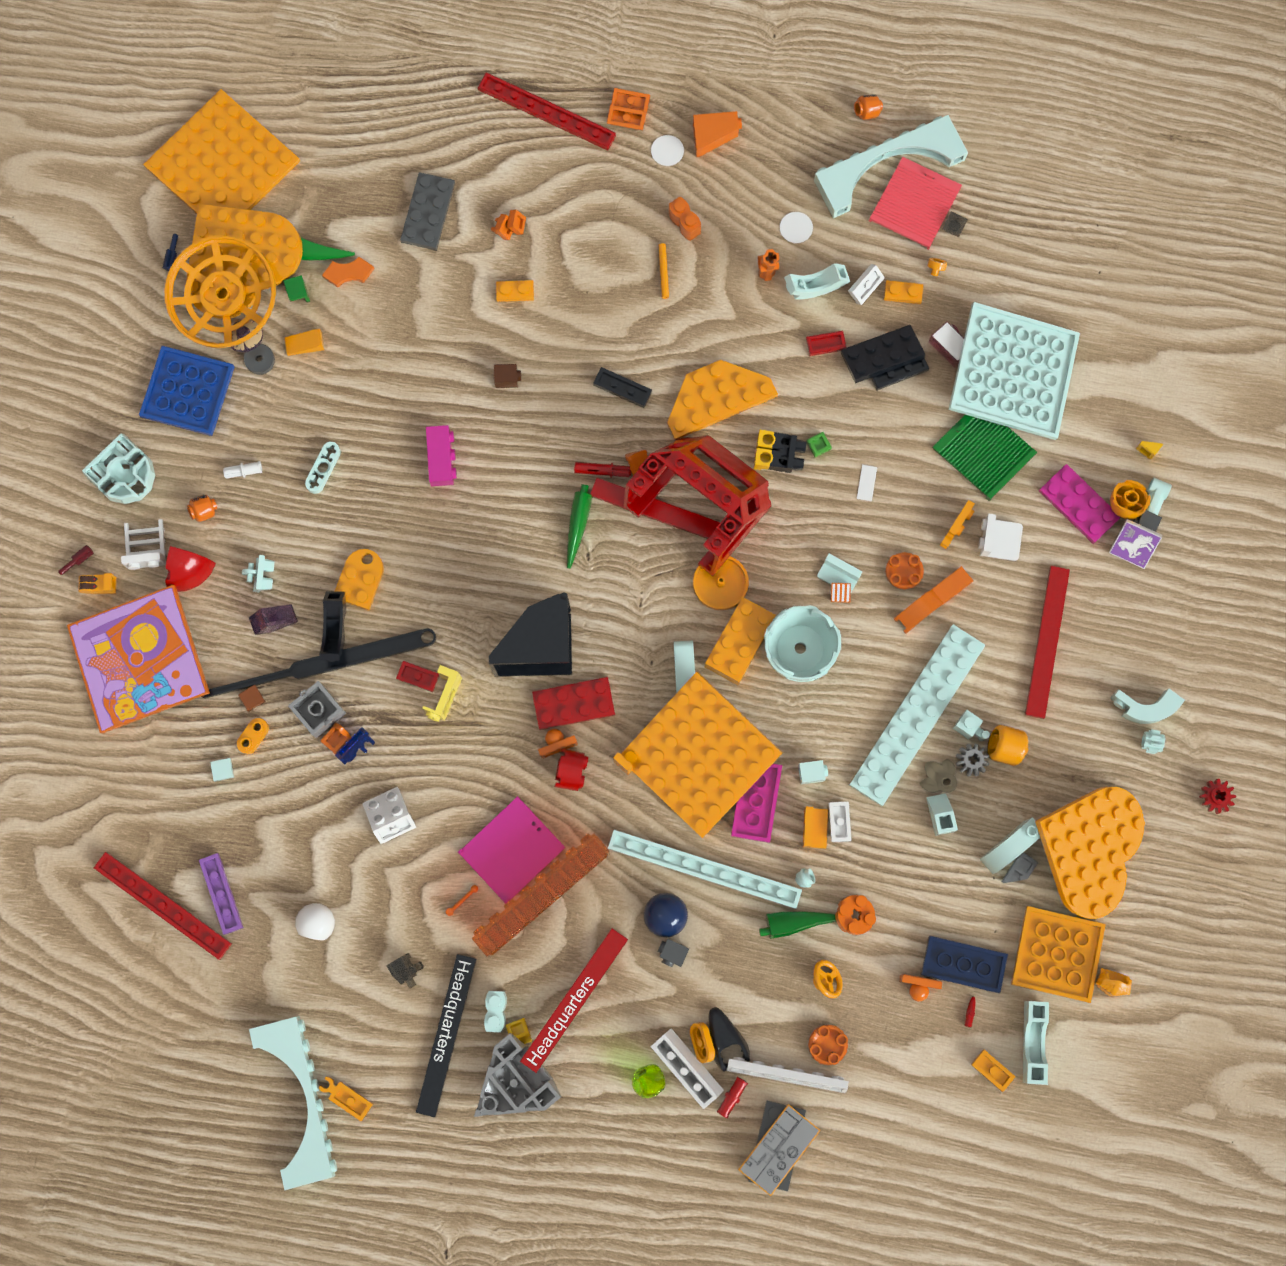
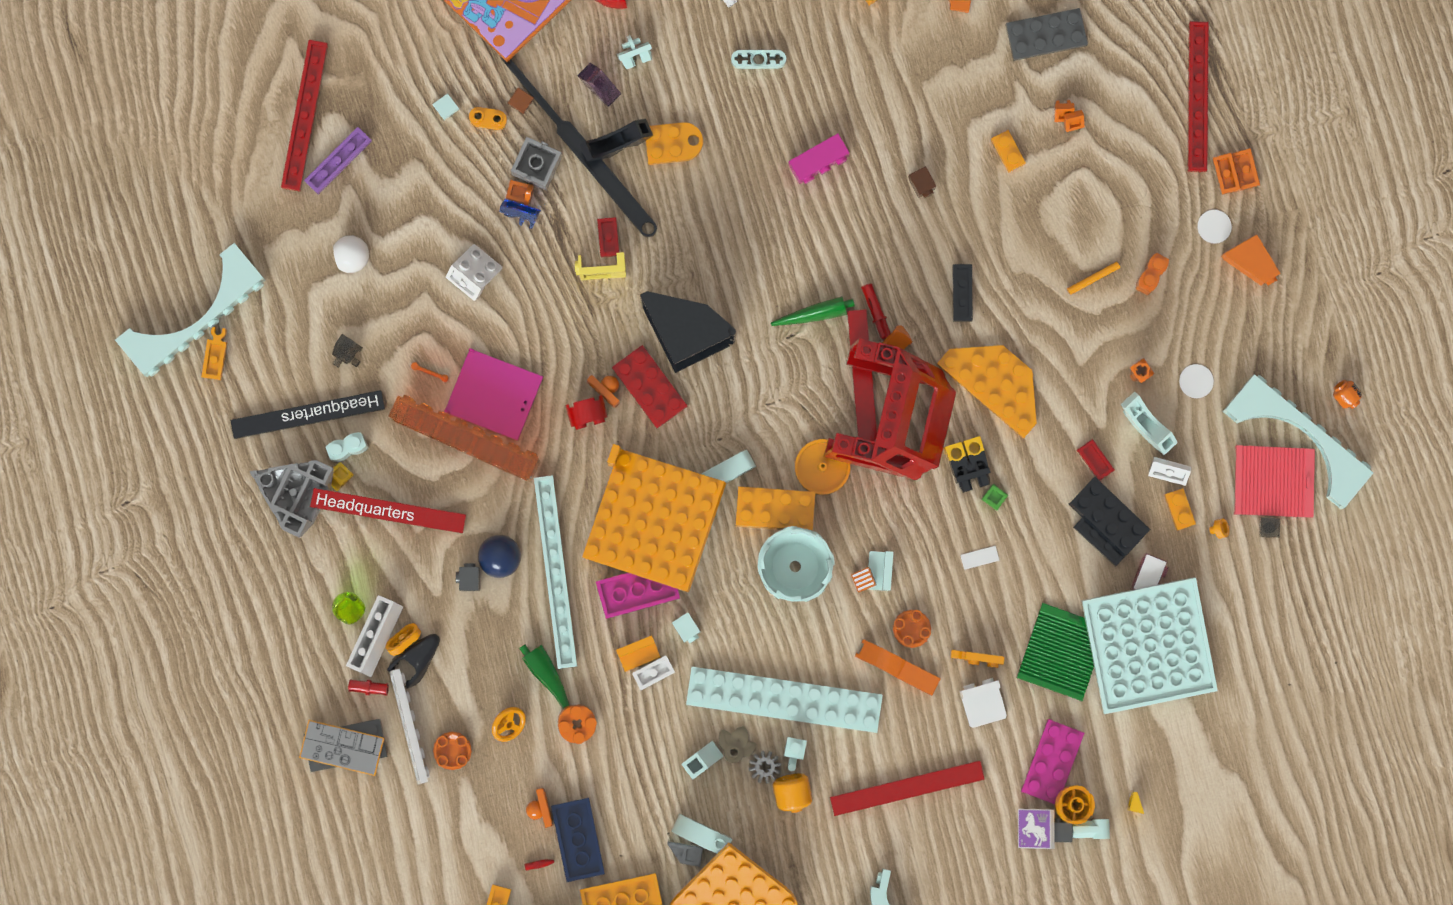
camera: 60 degrees right, 5 degrees up
(805, 878) = (589, 664): light aqua plate -> none

